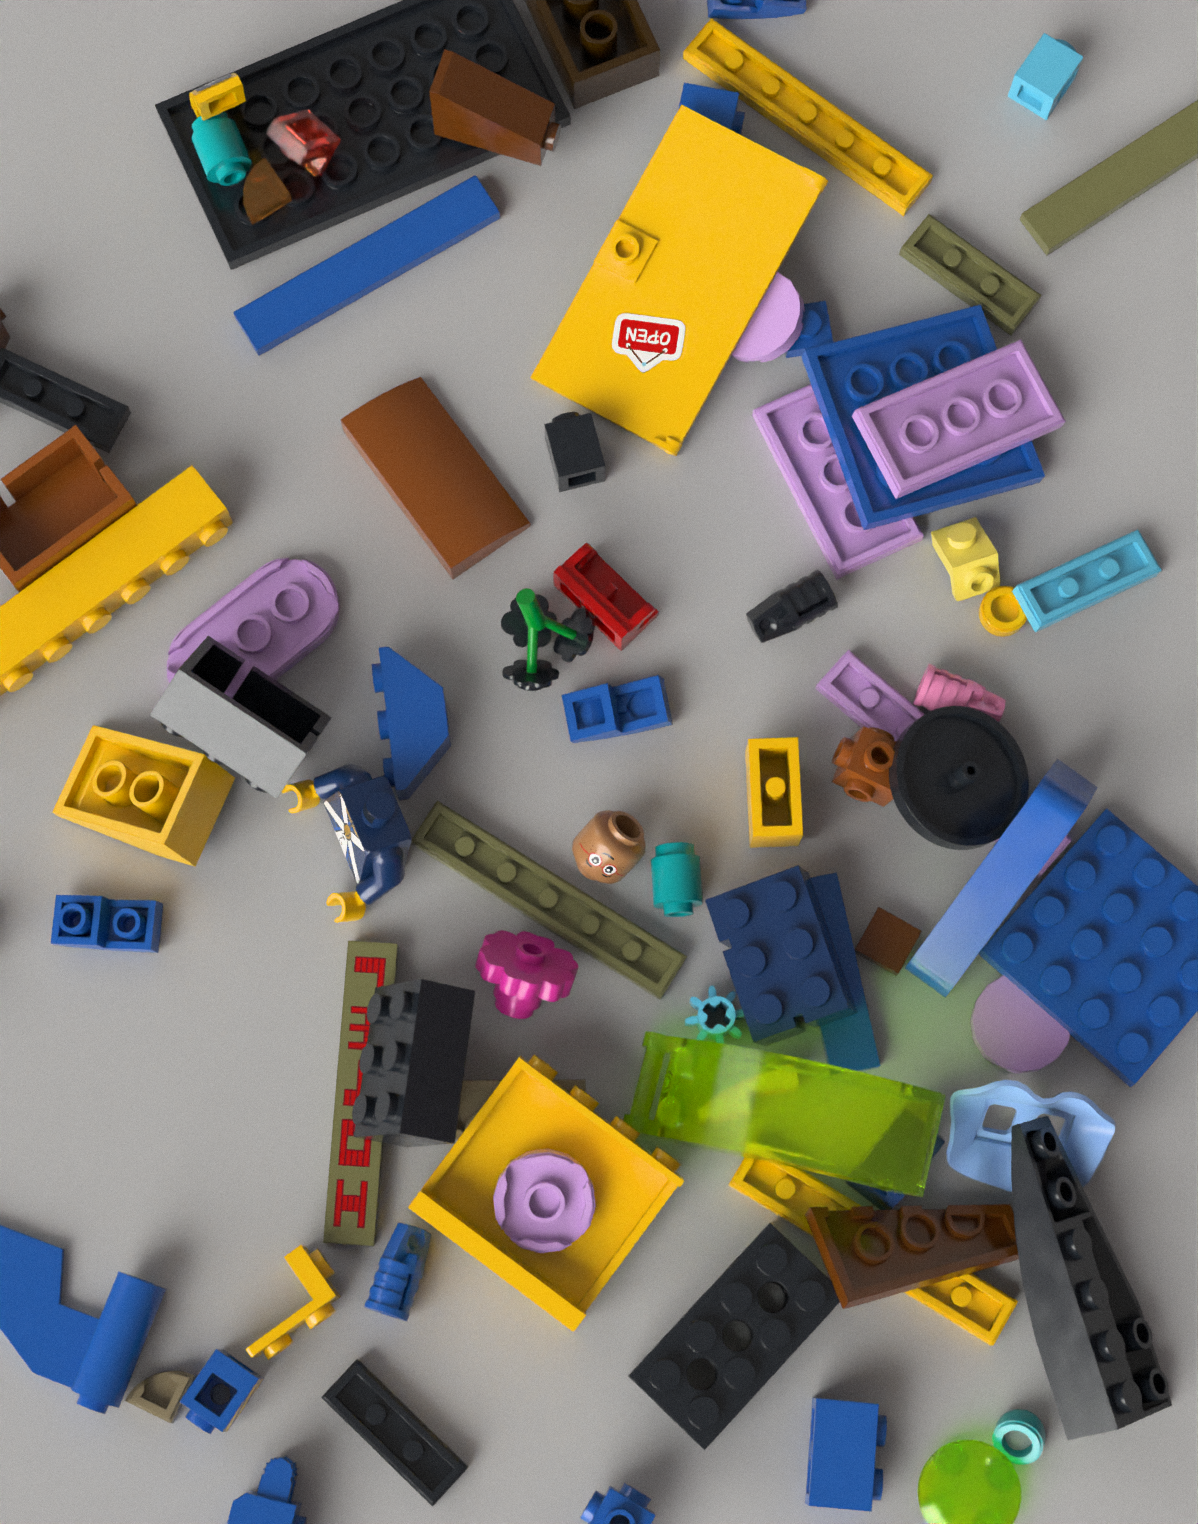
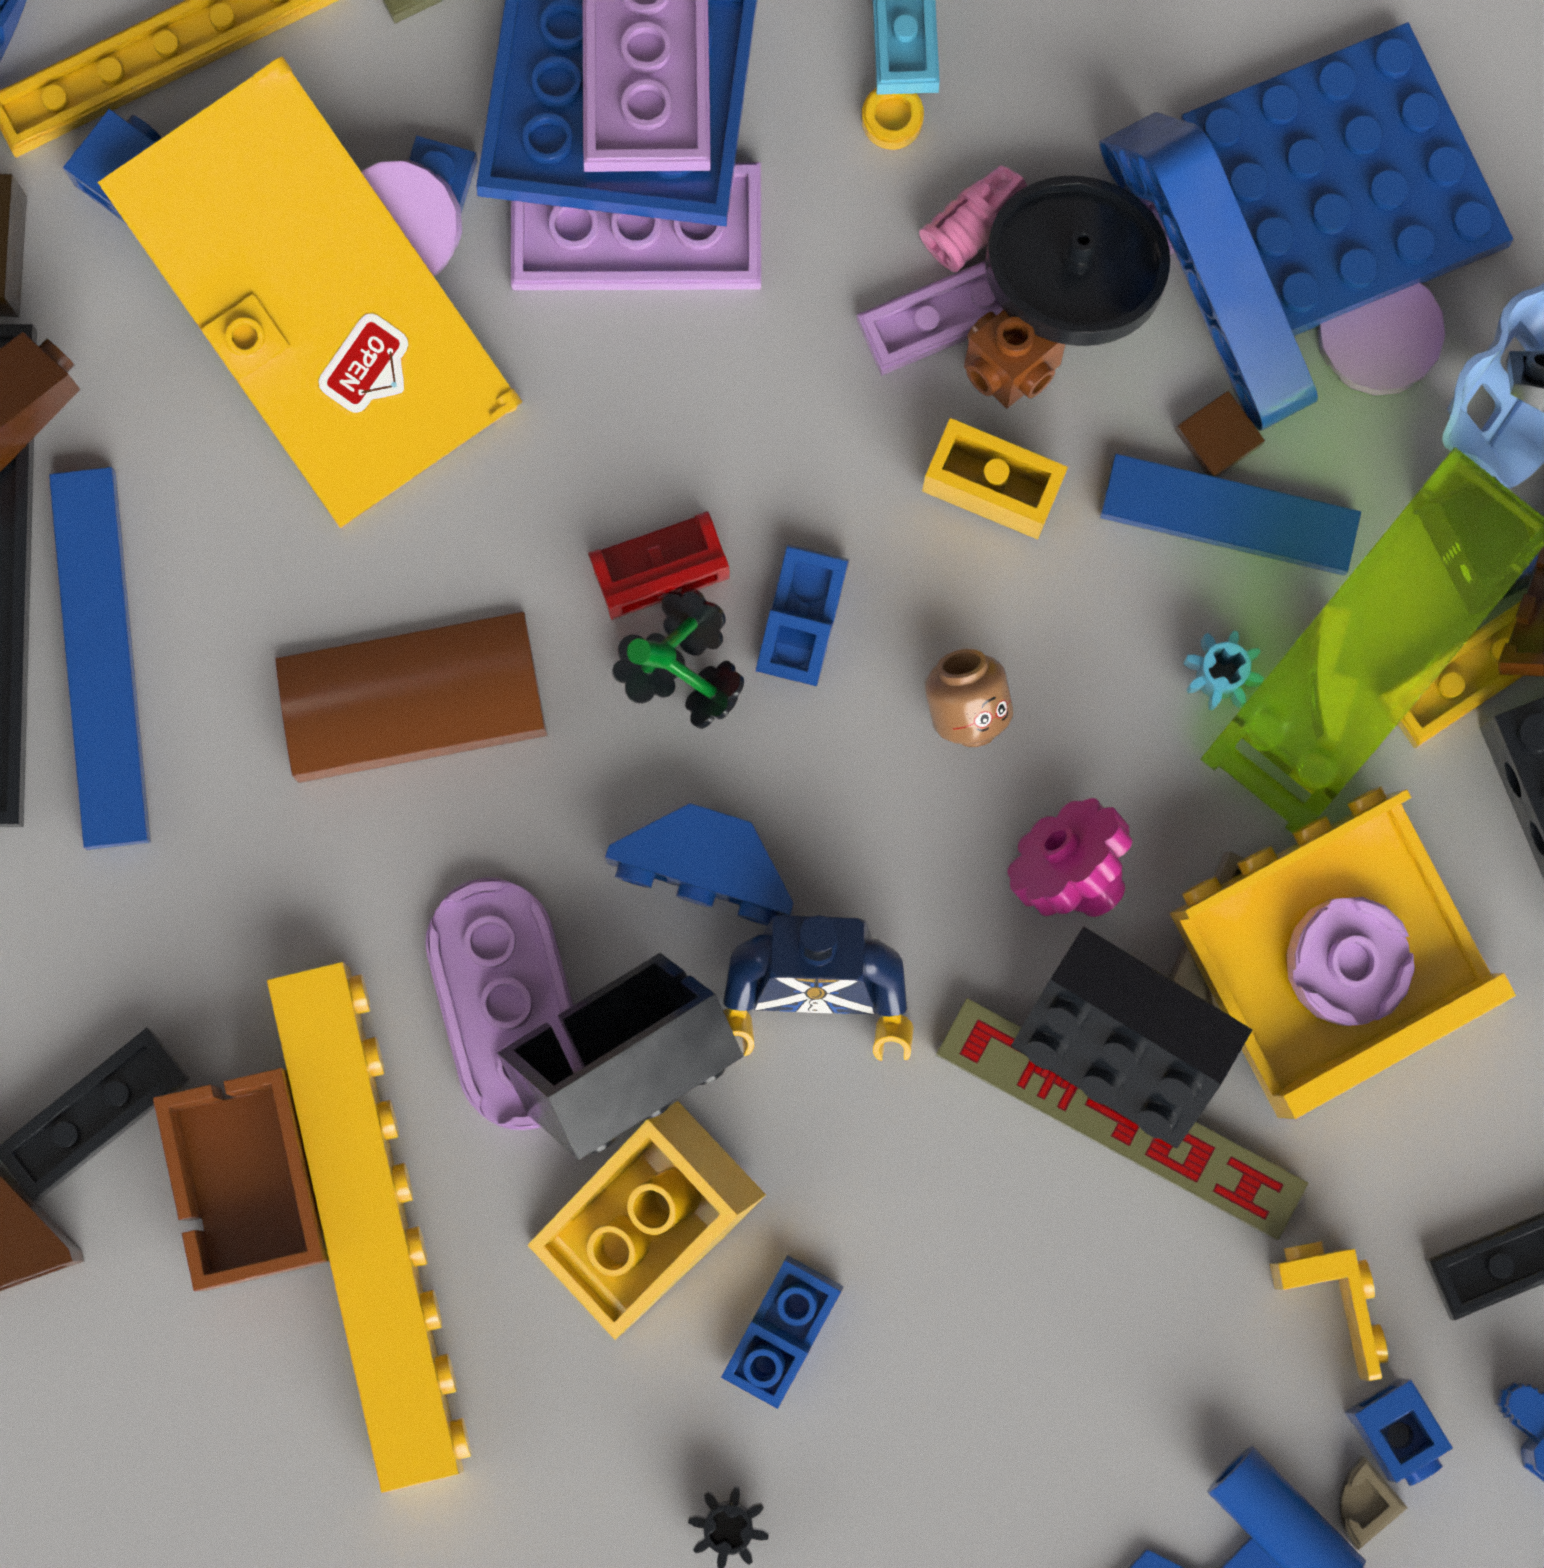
camera: 65 degrees left, 5 degrees up
(399, 1272) = (1353, 1166): blue hinge -> none
(548, 900) = (992, 799): olive tile -> none
(574, 451) = (462, 516): black brick -> none
(676, 879) = (1040, 639): teal brick -> none
(781, 956) = (1192, 561): dark blue piece -> none
(792, 607) = (776, 353): black hinge -> none
(967, 558) = (811, 124): light yellow bracket -> none

